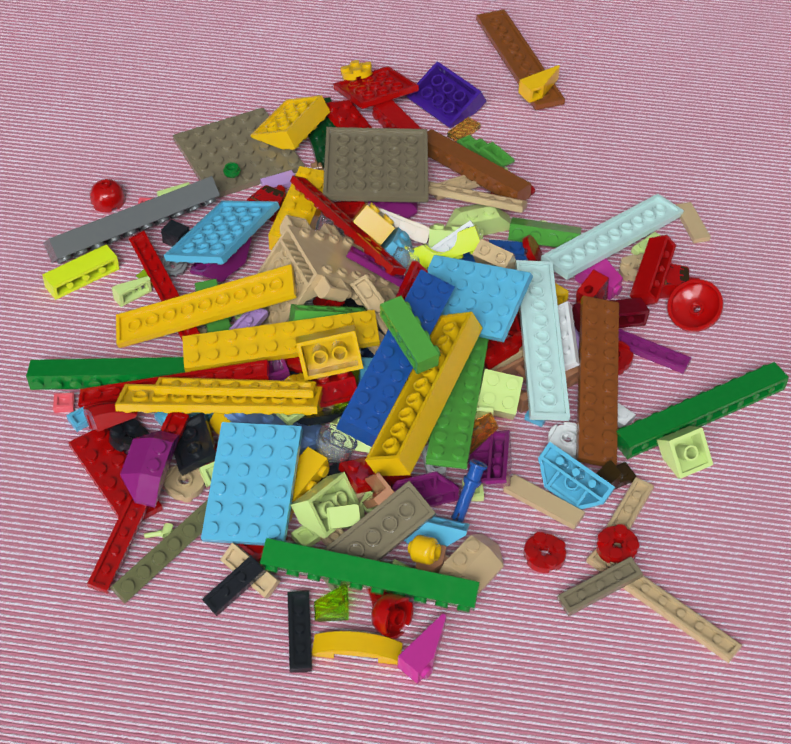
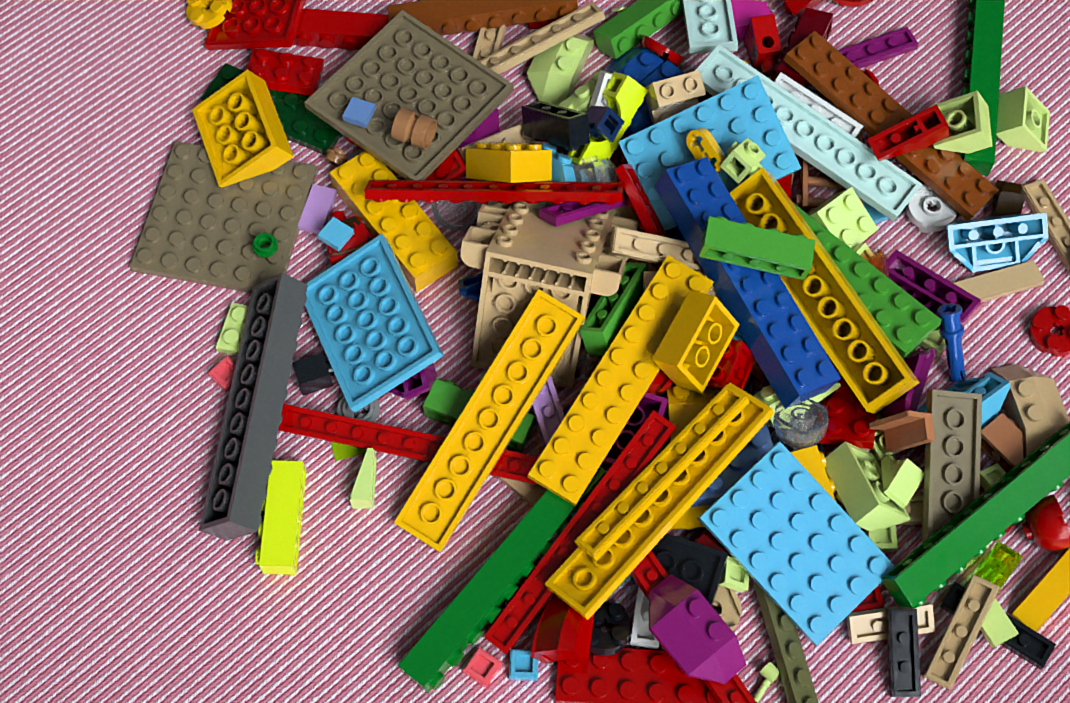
camera: 50 degrees left, 15 degrees up
(107, 195) = (171, 406): red cylinder -> none
(263, 190) = (336, 234): none -> medium azure tile
(272, 607) = (961, 632): none -> tan tile
(297, 617) = (997, 626): none -> yellowish green tile
(340, 148) = (359, 112): none -> medium blue tile
(350, 170) = (409, 127): none -> medium nougat wheel
(419, 227) = (555, 125): none -> black brick
(424, 549) = (1005, 437): yellow head -> none
(438, 242) = (602, 126): none -> dark blue brick
(462, 287) = (707, 148): none -> yellow beam
(470, 301) = (743, 160): none -> yellowish green brick
(593, 384) = (910, 134): none -> red slope
(634, 410) = (967, 124): none -> yellowish green slope

